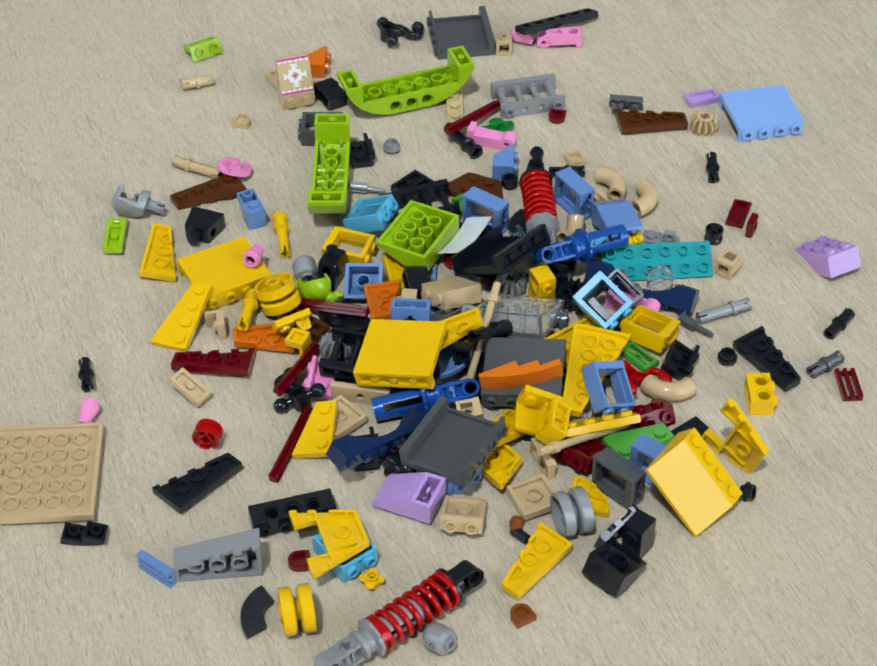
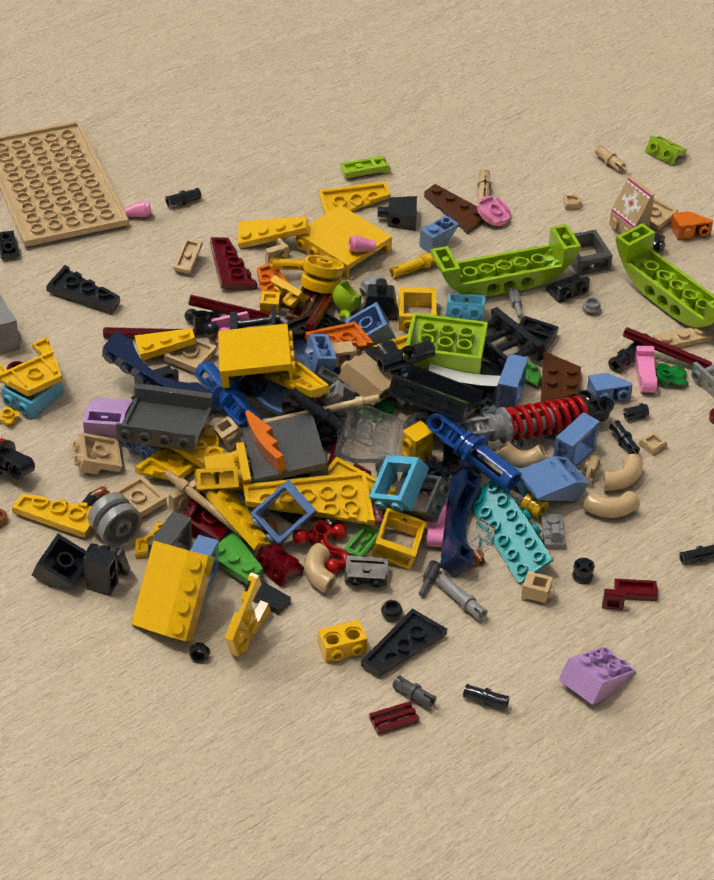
camera: 70 degrees right, 0 degrees up
(136, 207) = (406, 163): light grey piece -> none
(207, 433) = (135, 278): red wheel -> none
(274, 518) = (69, 355): black brick -> none
(444, 256) = (396, 359): none -> black piece

